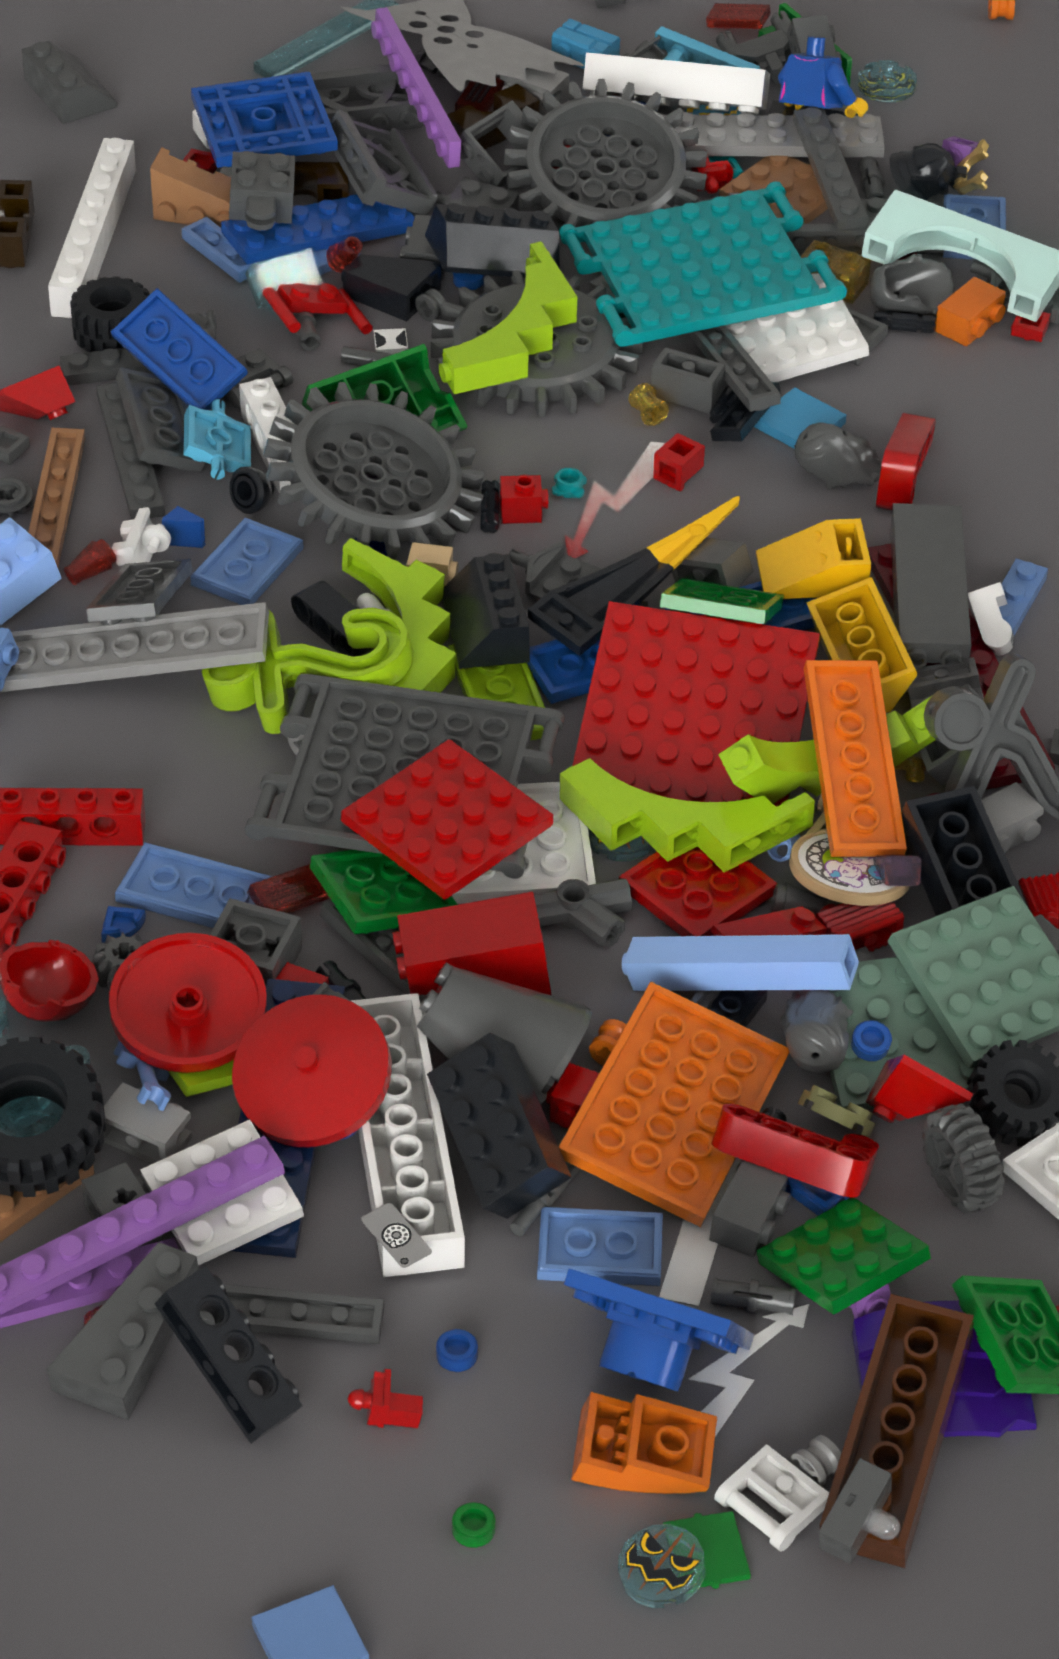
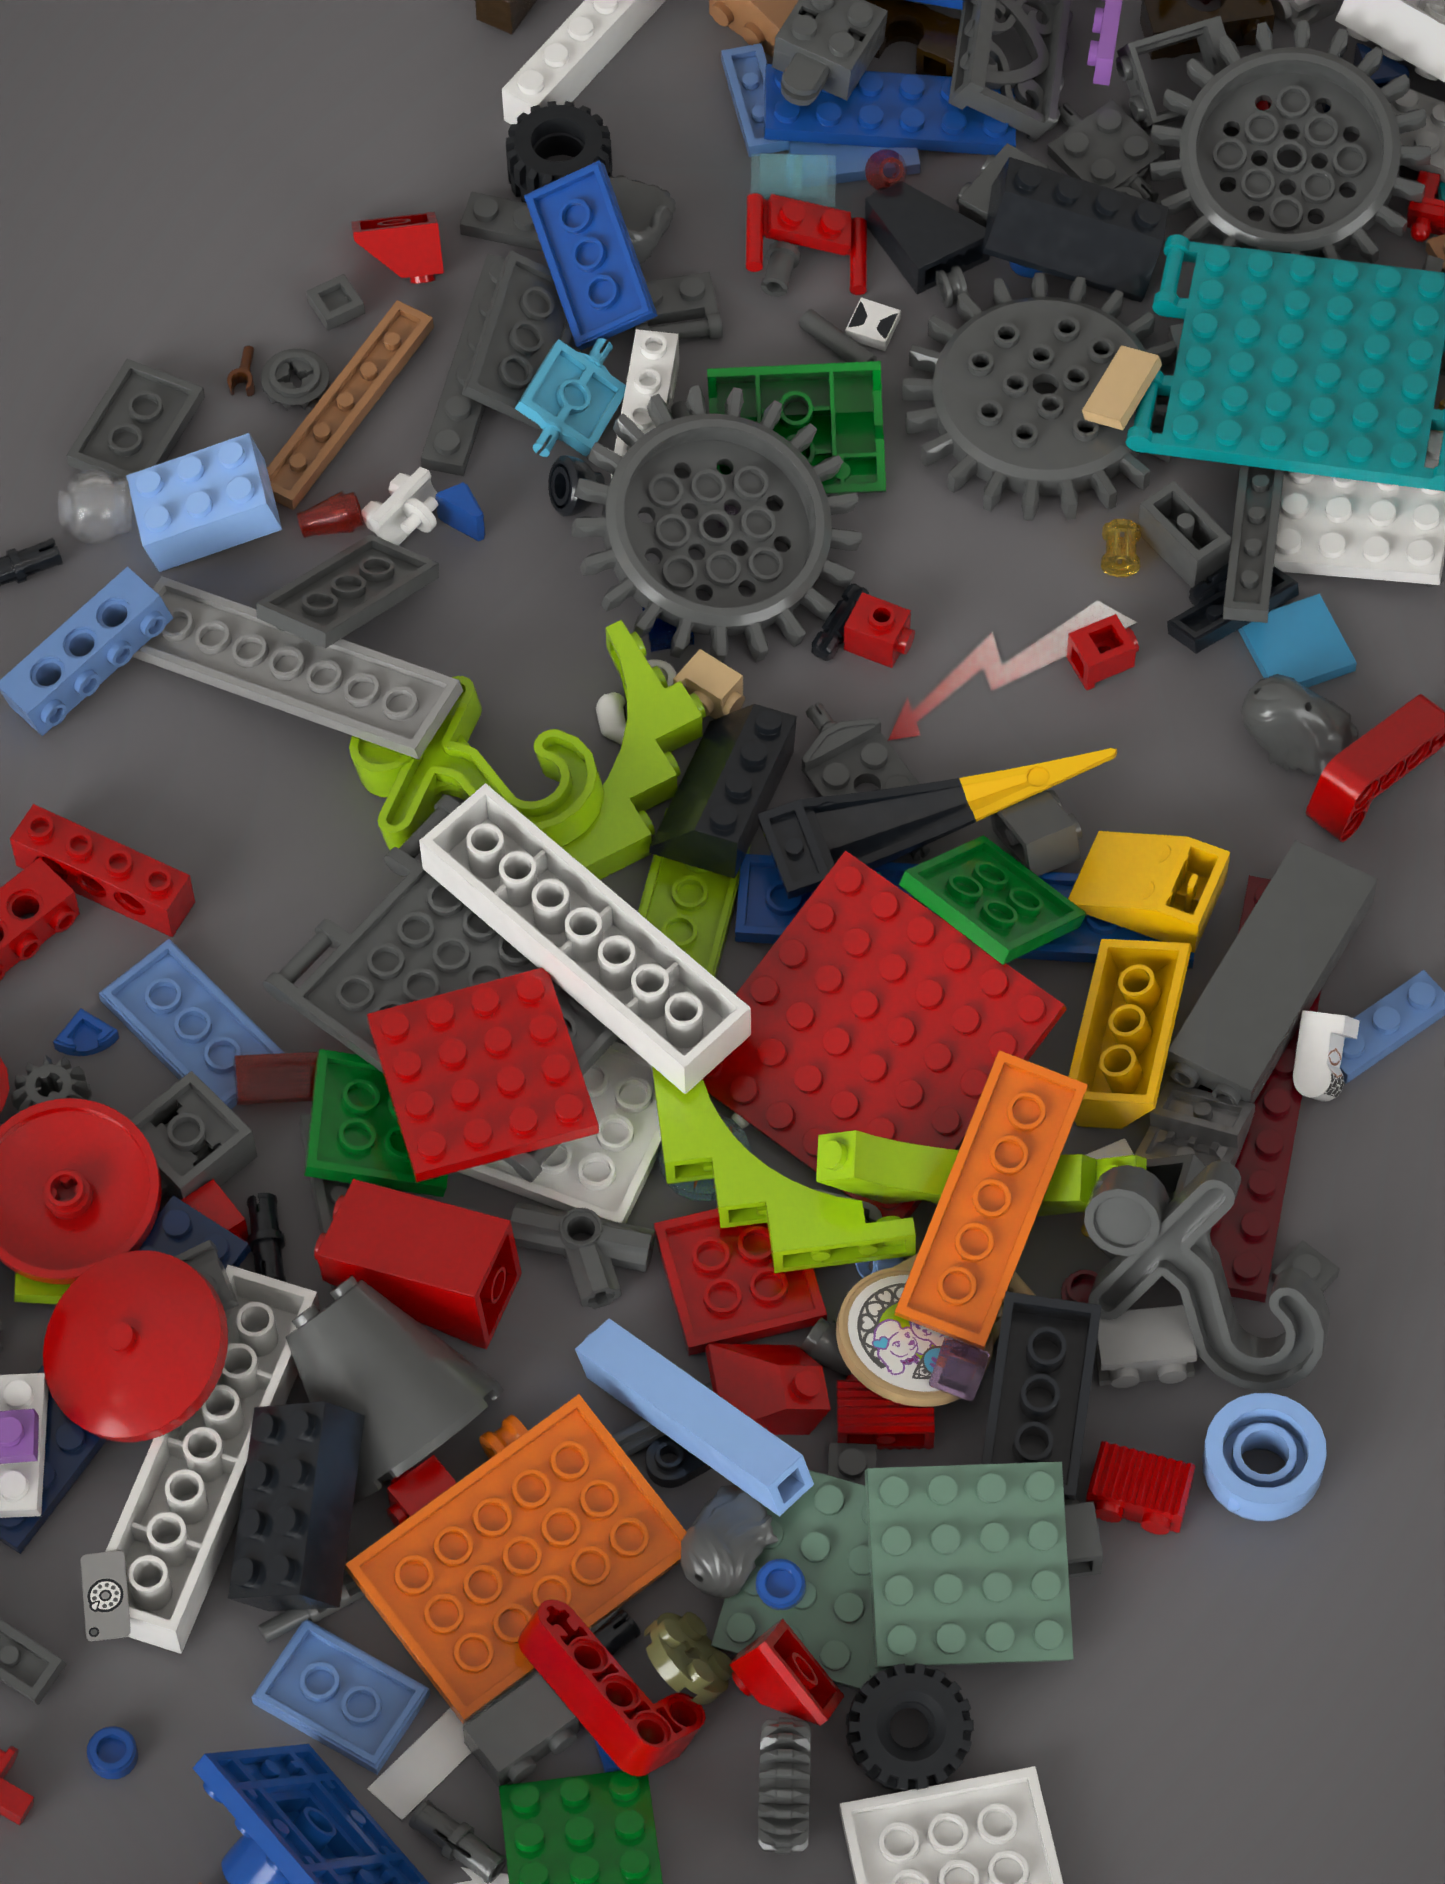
camera: 30 degrees right, 15 degrees up
(247, 562) = (512, 586): medium blue tile -> none
(322, 611) = (554, 698): black beam -> none
(468, 706) = (586, 938): none -> white brick
(504, 350) = (957, 413): lime arch -> none
(569, 483) = (957, 618): teal plate -> none
(594, 309) = (1122, 387): none -> tan tile

